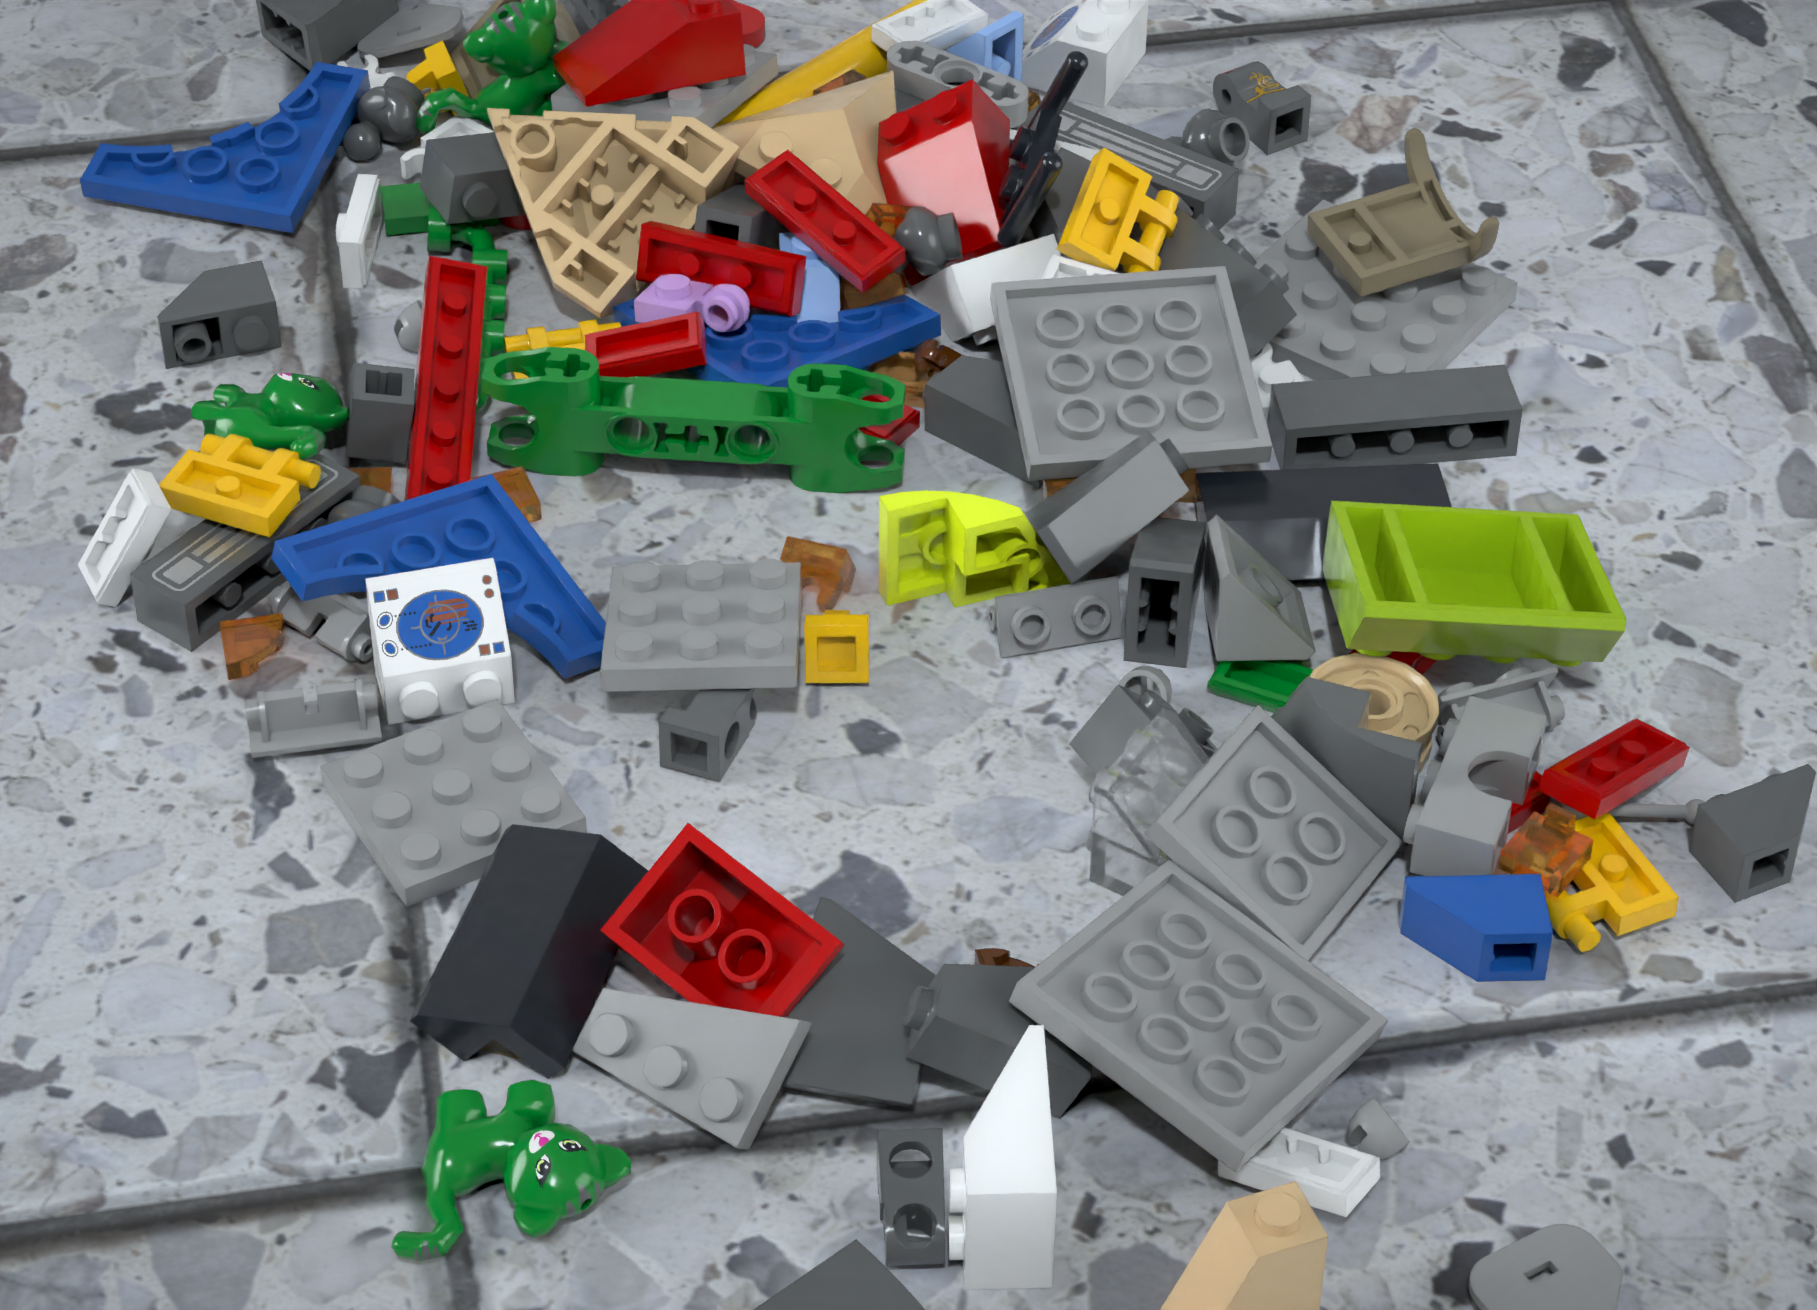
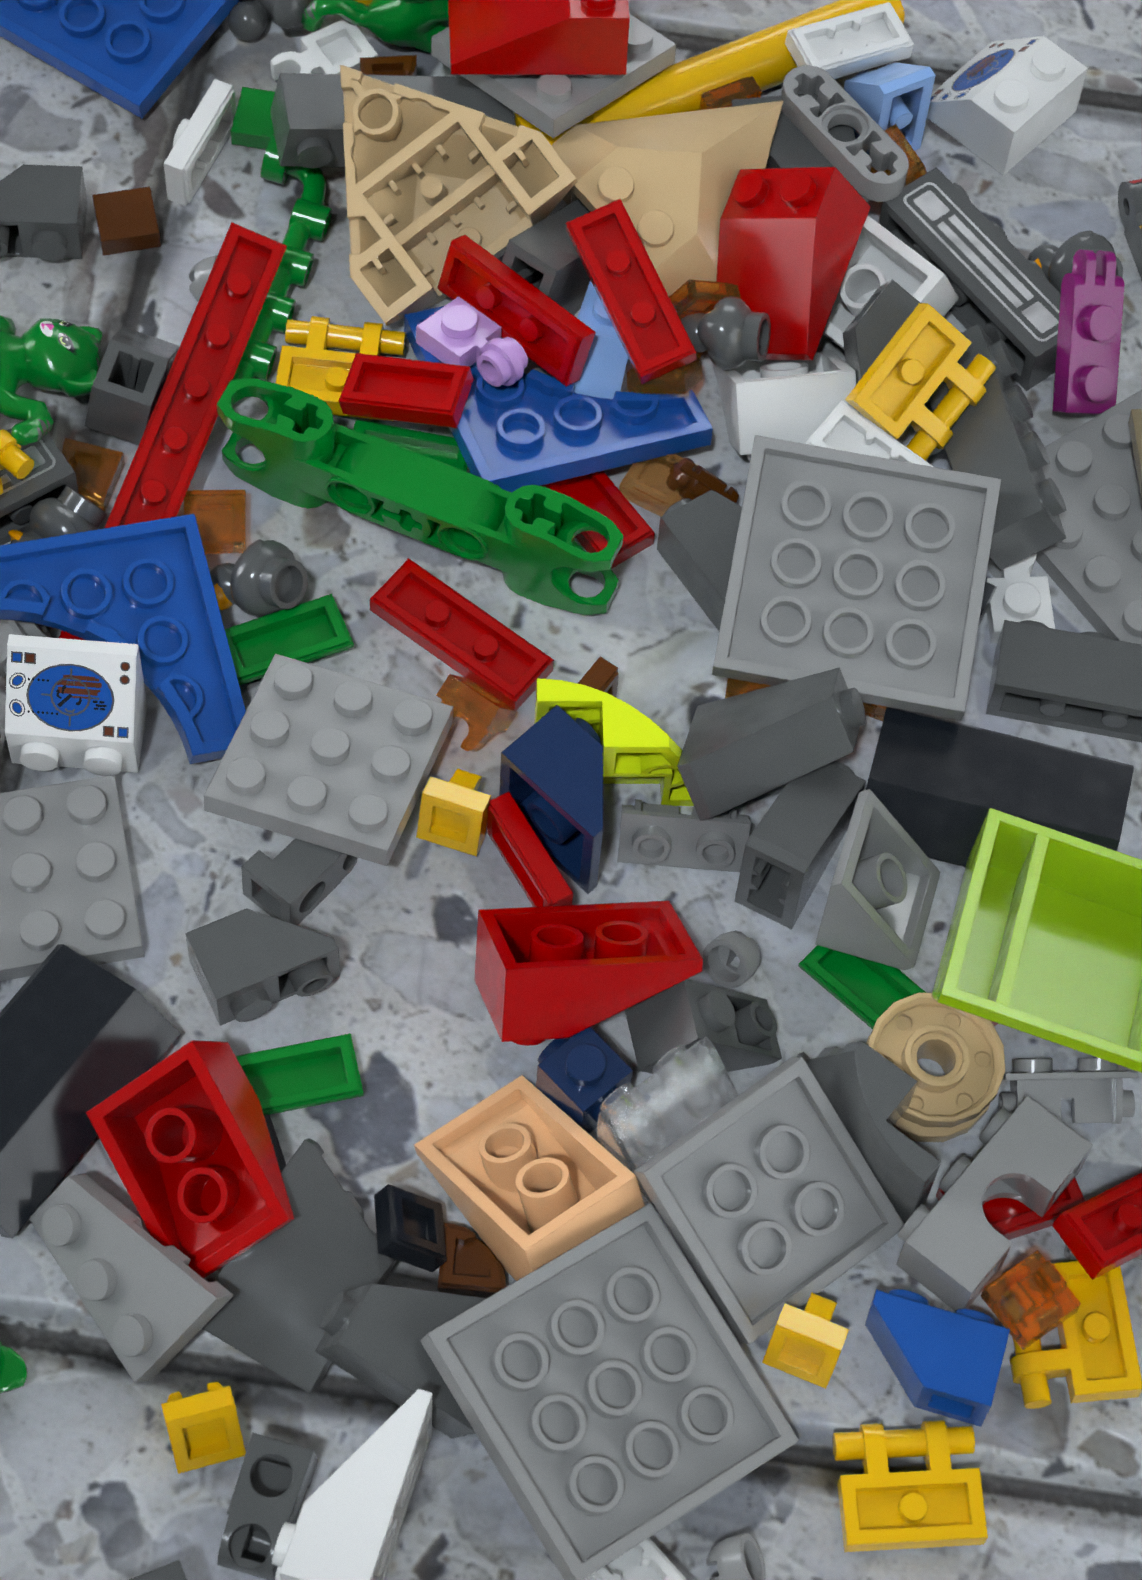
camera: 15 degrees right, 20 degrees up
(313, 306) = (126, 220): none -> reddish brown tile
(576, 520) = (261, 579): none -> dark grey animal
(594, 568) = (300, 633): none -> green tile
(707, 788) = (258, 961): none -> dark grey slope
(764, 522) = (461, 634): none -> red tile
(801, 870) = (303, 1074): none -> green tile
(822, 1157) = (203, 1428): none -> yellow tile
(924, 664) = (525, 854): none -> red tile
(933, 600) = (559, 788): none -> dark blue slope
(938, 946) = (410, 1228): none -> black tile
(1002, 718) = (576, 965): none -> red slope
(1033, 149) = (870, 262): black plate -> none
(1037, 887) = (528, 1177): none -> light nougat slope
(1051, 807) = (580, 1075): none -> dark blue brick
(1243, 175) = (1089, 334): none -> magenta hinge
(1359, 945) = (807, 1341): none -> yellow tile
(1511, 1045) = (909, 1507): none -> yellow plate

